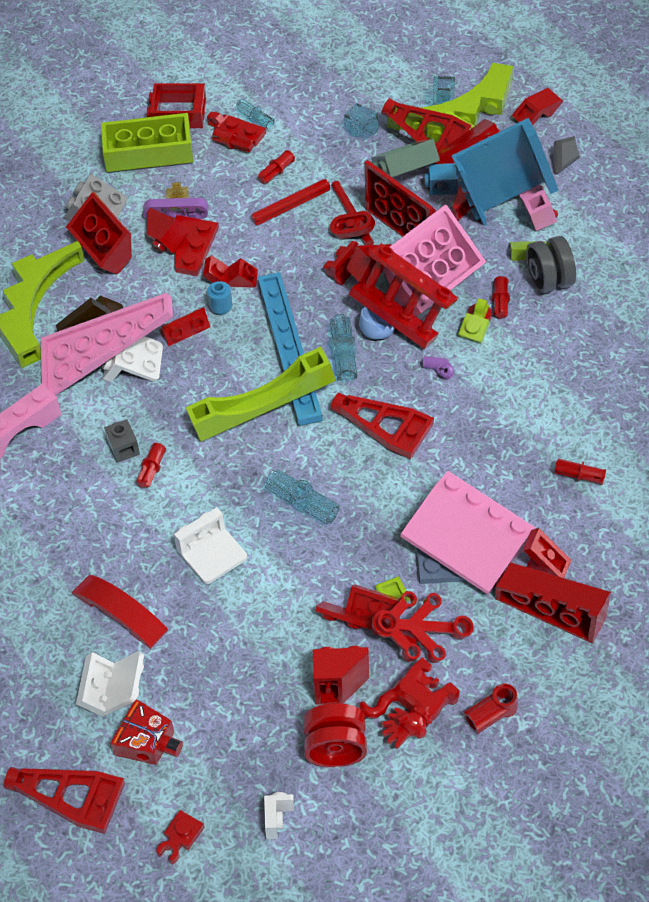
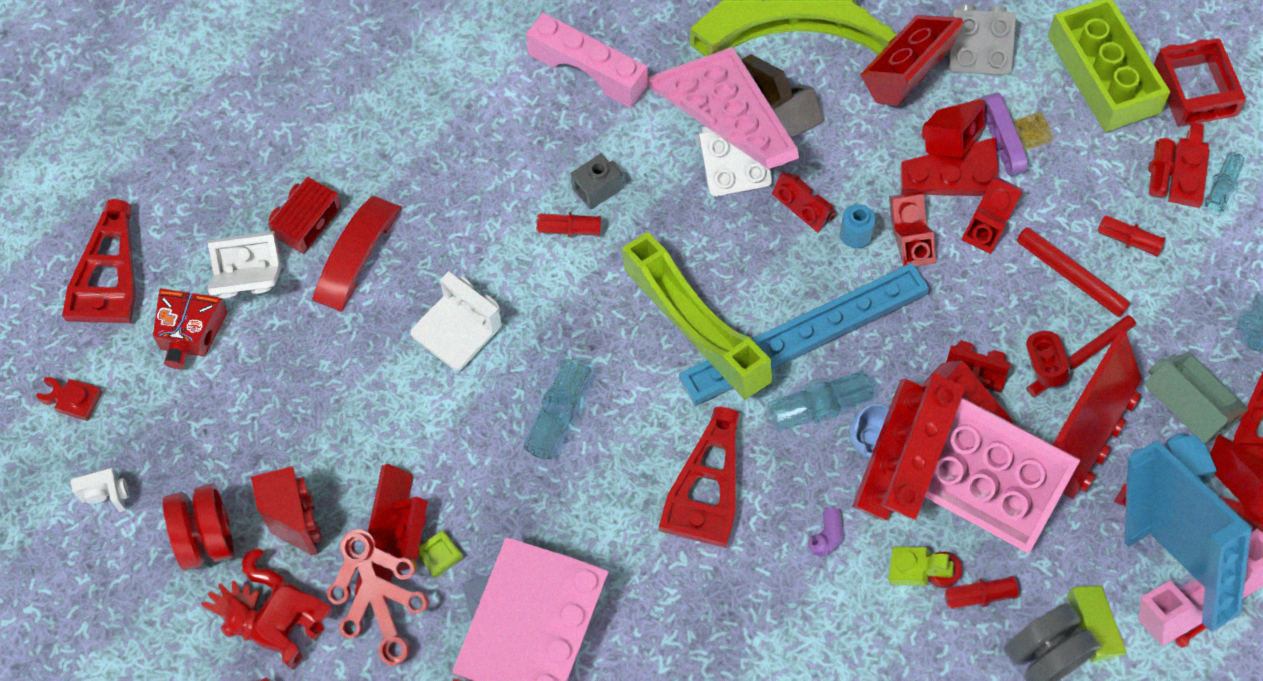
camera: 75 degrees right, 10 degrees up
(73, 637) = (304, 214): none -> red brick
(229, 228) = (992, 214): none -> red slope

